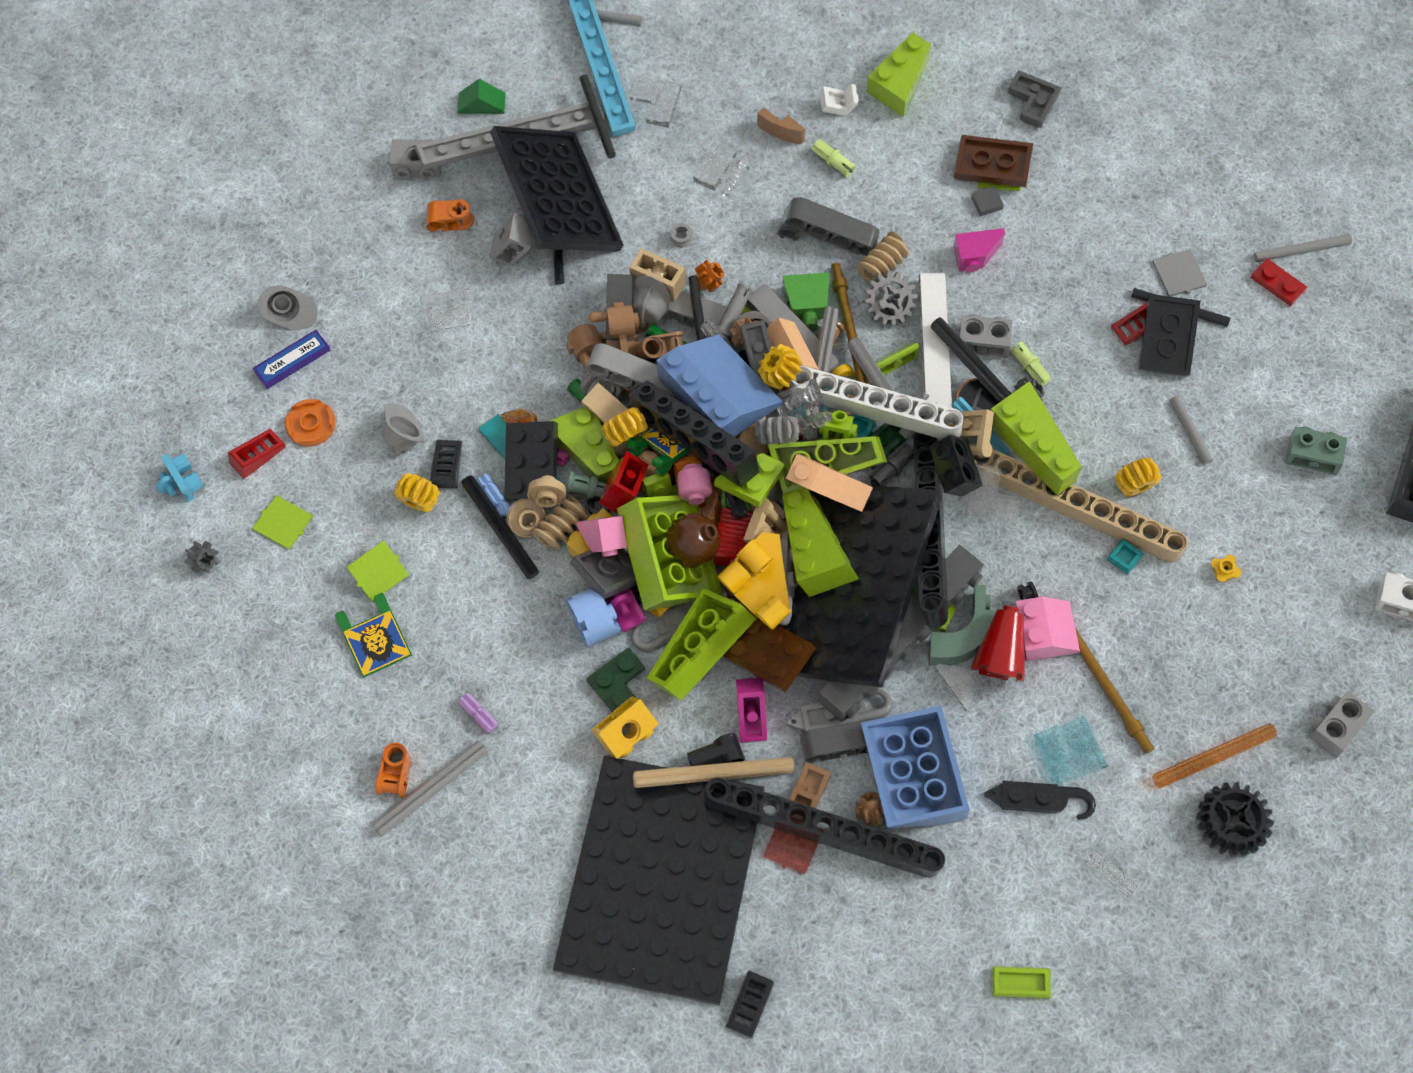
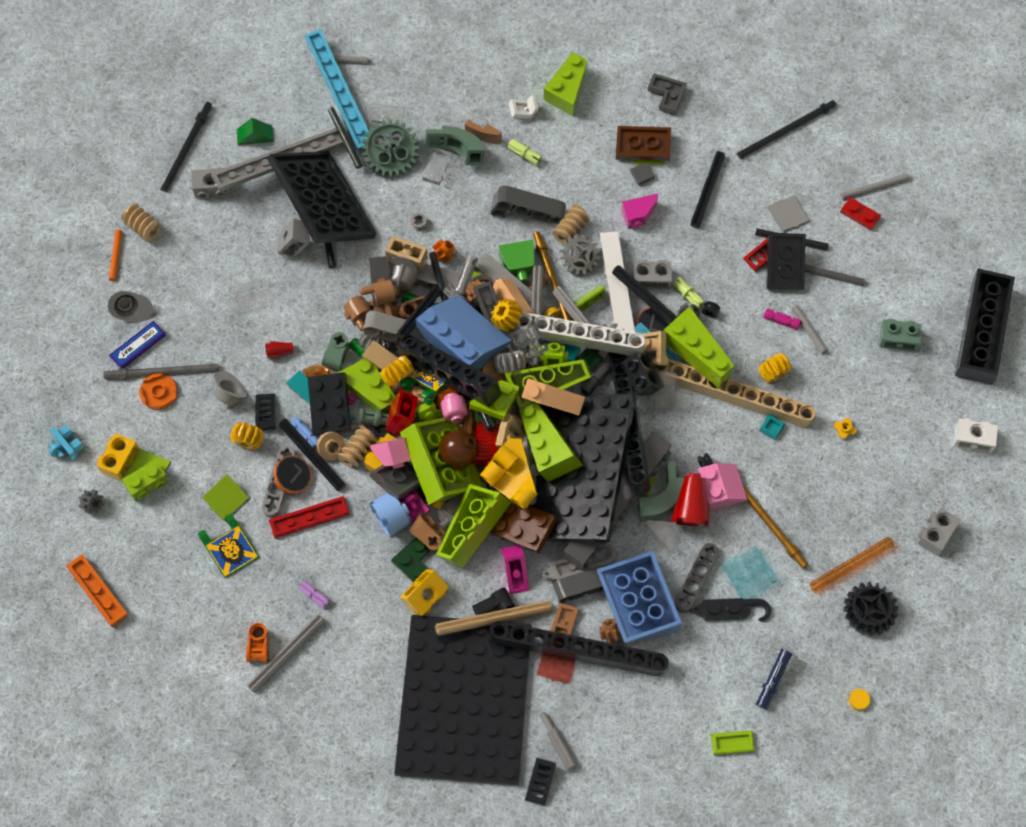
camera: 10 degrees left, 0 degrees up
(193, 676) = (97, 590): none -> orange plate
(250, 465) = (109, 421): red slope -> none
(250, 504) = (121, 458): none -> yellow brick
(268, 394) = (123, 373): none -> flat silver bar
(275, 536) = (145, 480): none -> lime brick
(279, 240) = (115, 255): none -> orange bar
(318, 200) = (141, 222): none -> tan piece
(413, 75) = (200, 119): none -> black bar
(447, 215) = (241, 224): orange piece -> none
(447, 556) = (267, 502): none -> light grey beam
(469, 550) = (292, 474): none -> black tile
(474, 383) = (277, 349): none -> red cone
(485, 609) = (309, 517): none -> red tile
(546, 491) = (345, 425): tan plate -> none
(547, 396) = (336, 354): none -> sand green piece
(639, 645) = (427, 530): none -> medium nougat piece
(649, 366) = (426, 303): none -> black axle
(675, 132) = (374, 151): none -> sand green gear
(745, 133) = (458, 140): none -> sand green arch
(782, 955) = (559, 744): none -> light grey axle
(995, 748) = (695, 577): none -> dark grey beam
(1059, 389) = (711, 309): none -> black bush
(1073, 230) = (707, 189): none -> black axle
(1105, 872) = (763, 701): none -> dark blue pin
(1155, 412) = (782, 318): none -> dark pink axle
(1204, 943) = (859, 699): none -> yellow tile
(1233, 360) = (834, 275): none -> dark grey bar
(1242, 138) = (824, 108): none -> black bar

